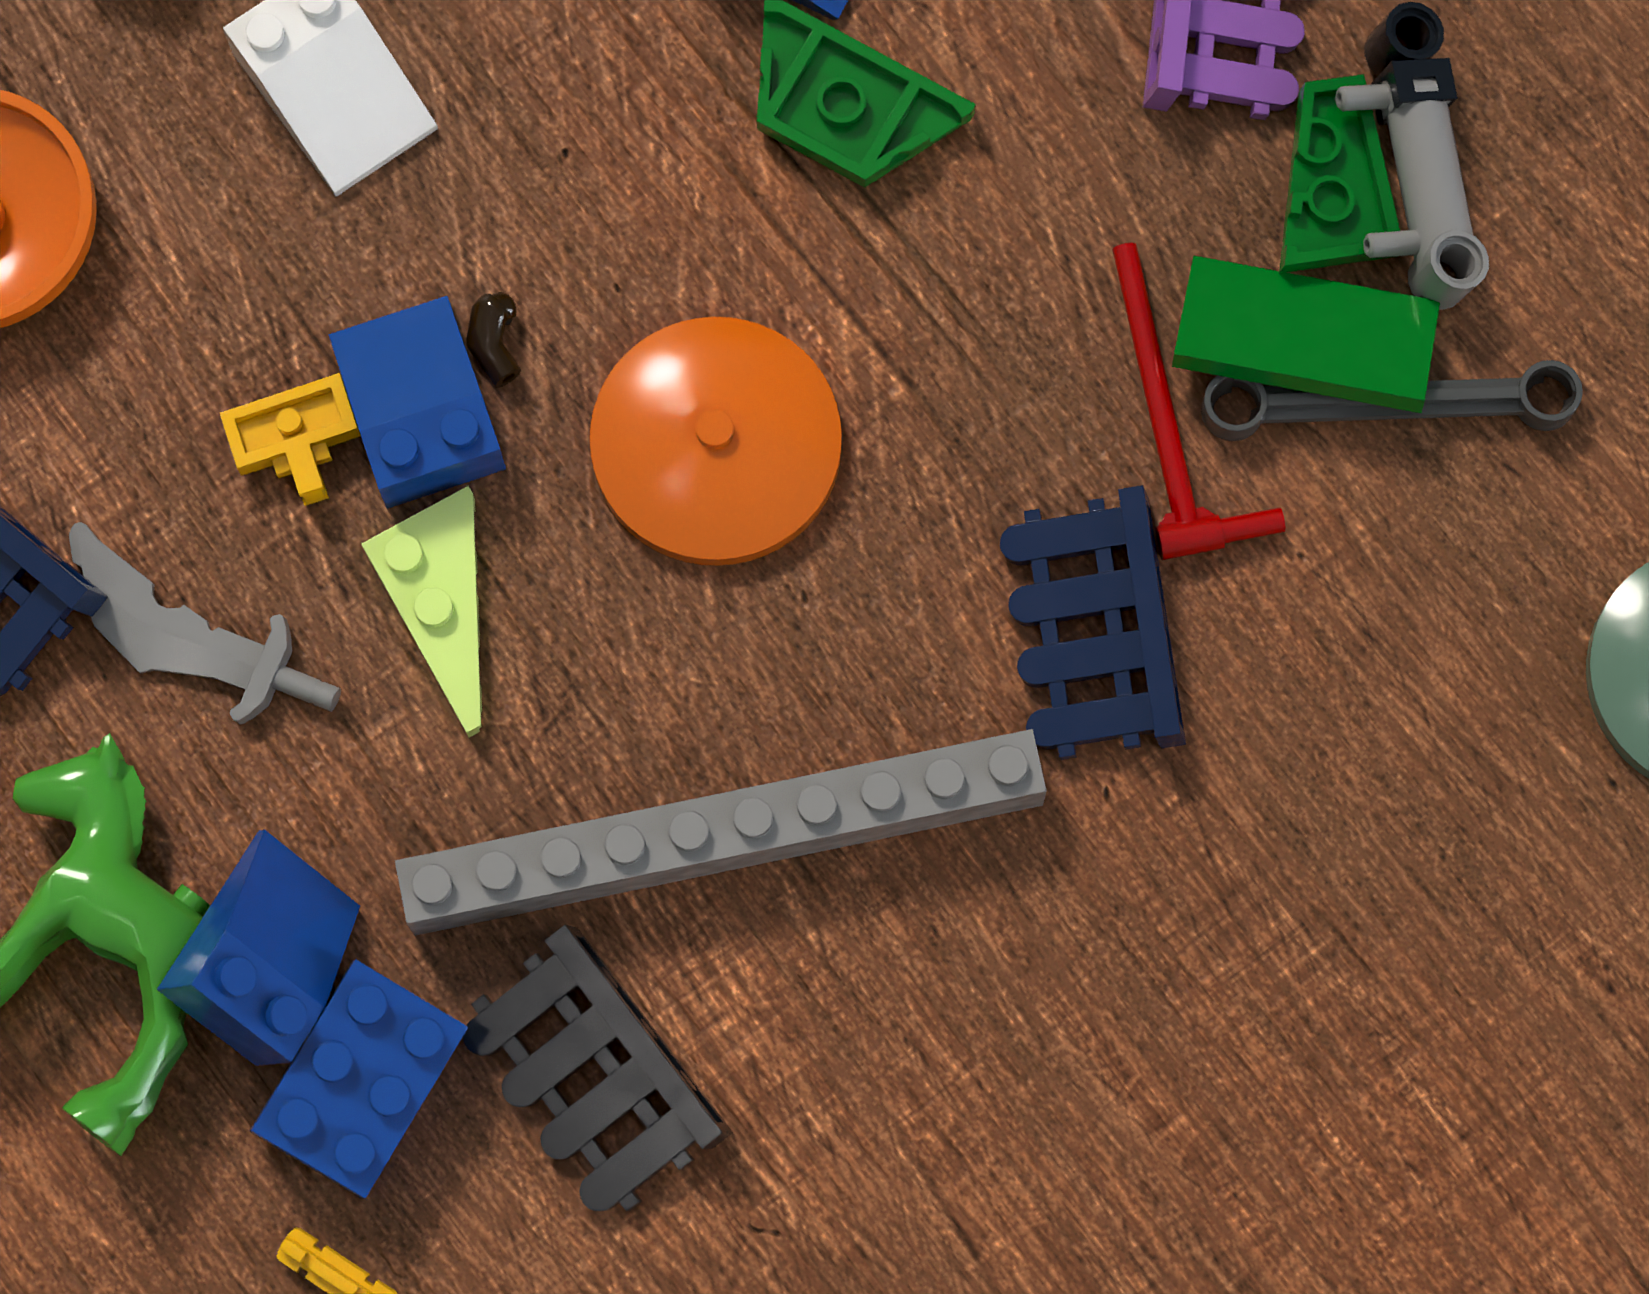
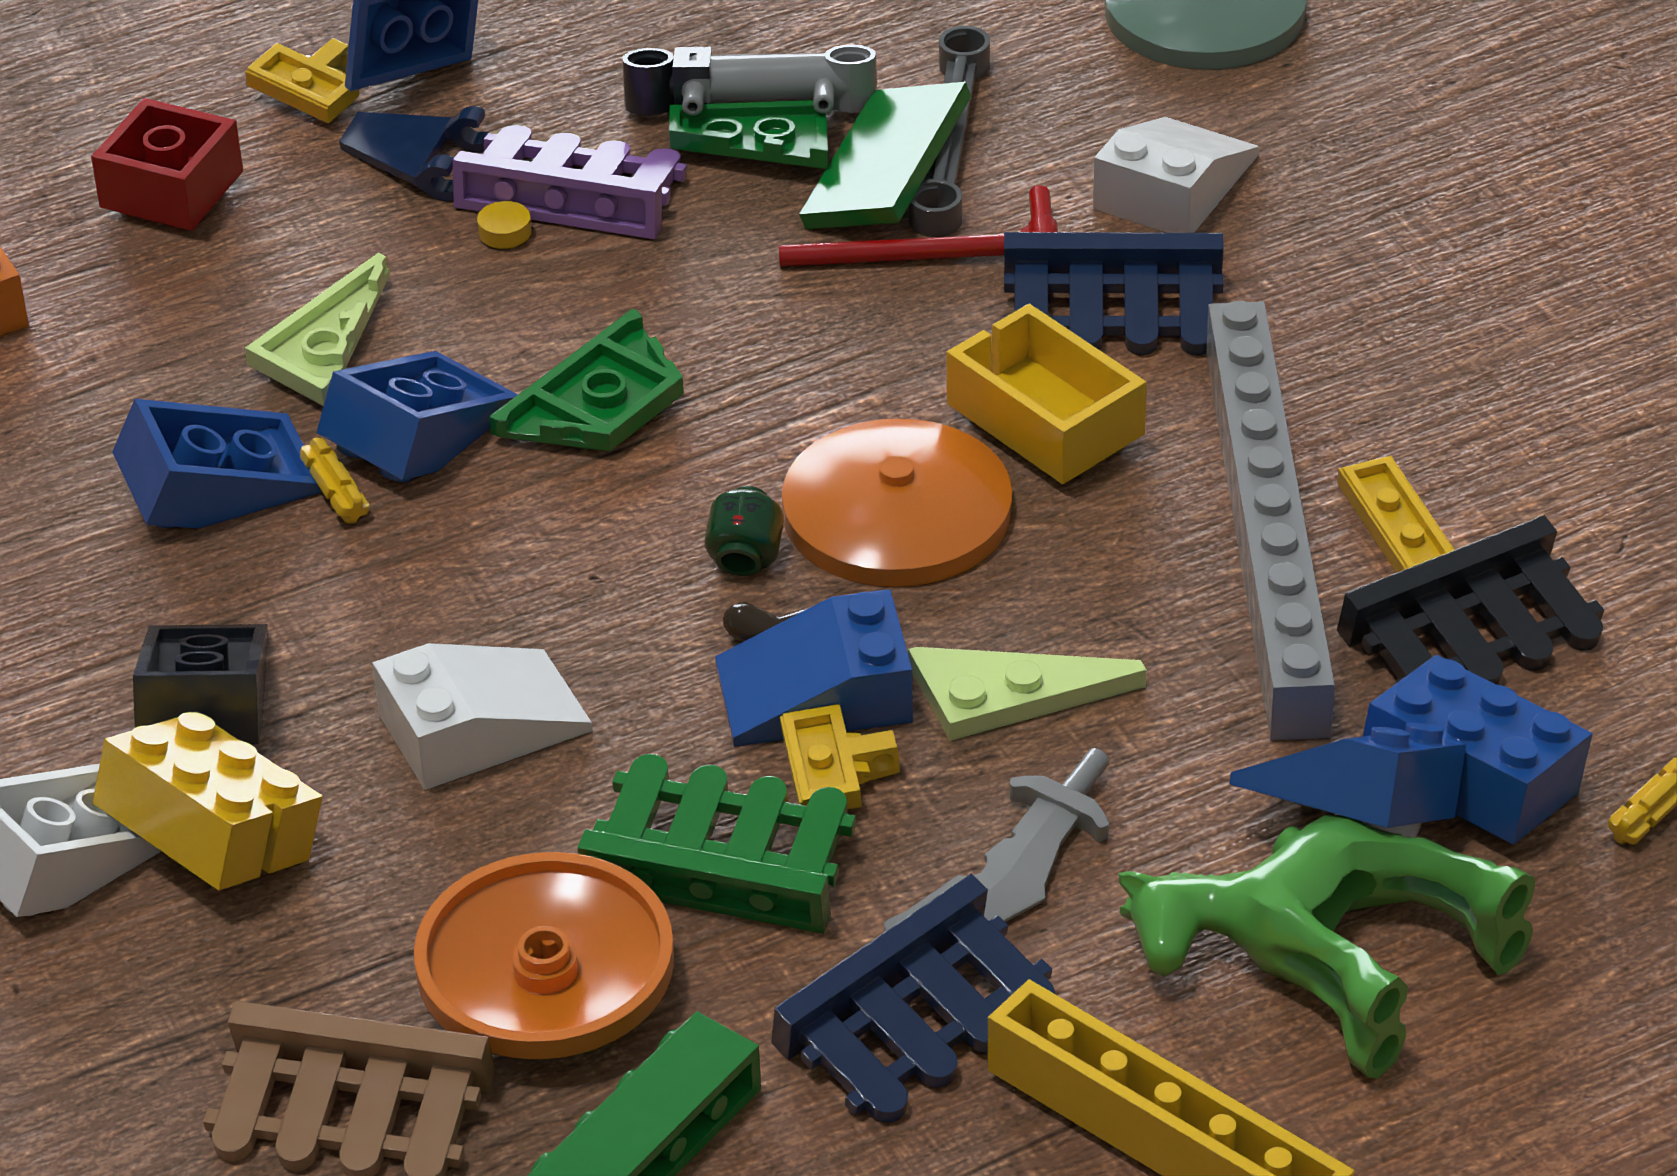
camera: 80 degrees left, 35 degrees down
(115, 310) = (718, 876): none -> green fence
(621, 288) = (744, 531): none -> dark green head
(754, 981) = (1393, 512): none -> yellow tile
(874, 569) = (1046, 393): none -> yellow piece
(1353, 669) = (1167, 173): none -> white slope

